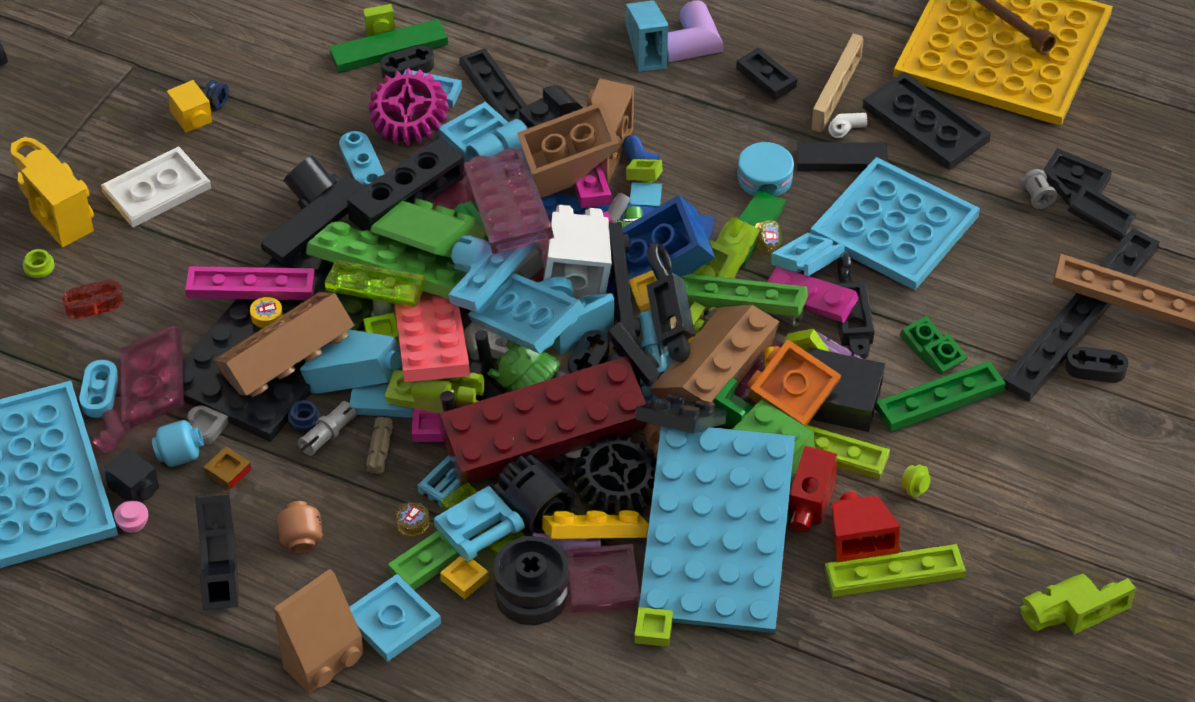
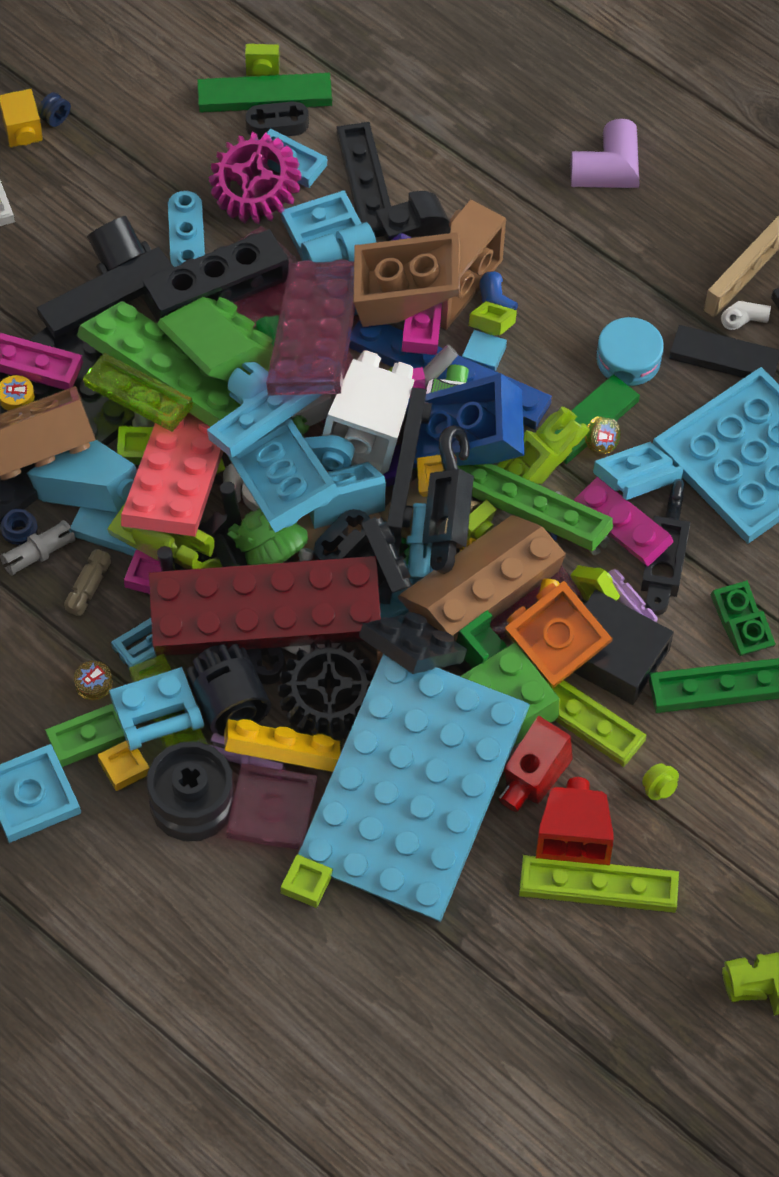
camera: 15 degrees right, 10 degrees up
(647, 35) = (554, 149): medium azure slope -> none
(766, 73) = (675, 229): black plate -> none

